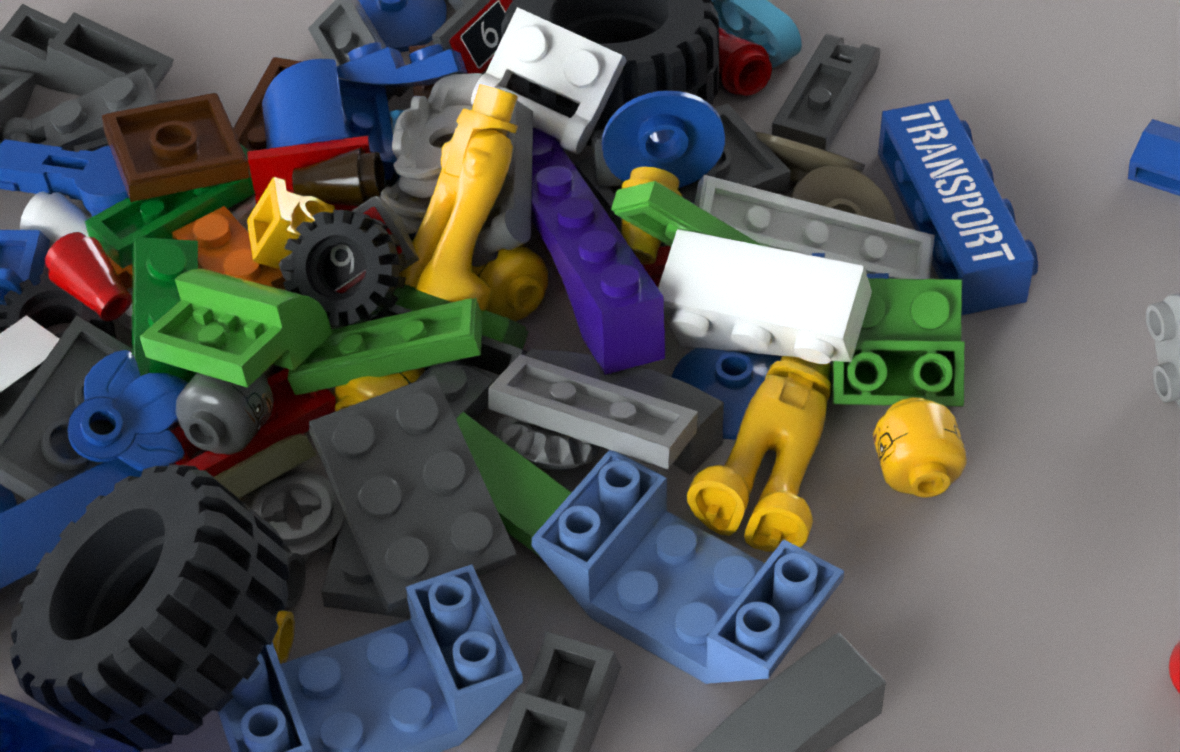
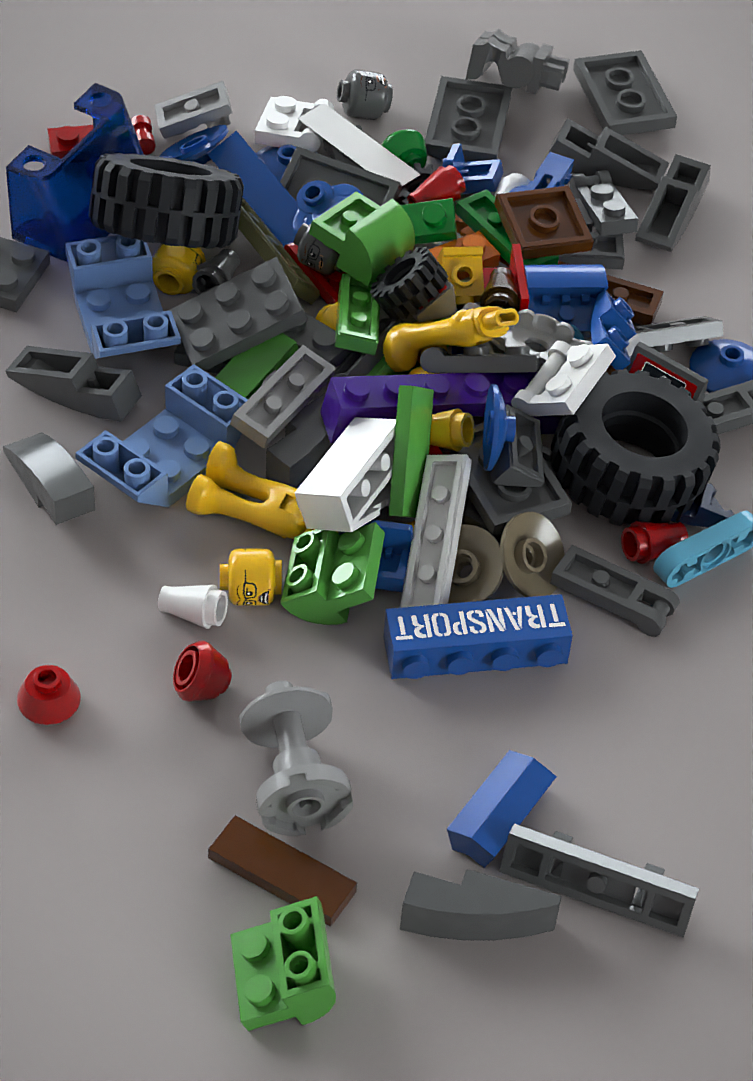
camera: 90 degrees right, 0 degrees up
(989, 506) = (197, 604): none -> white cone
(1127, 479) = (201, 673): none -> red cone

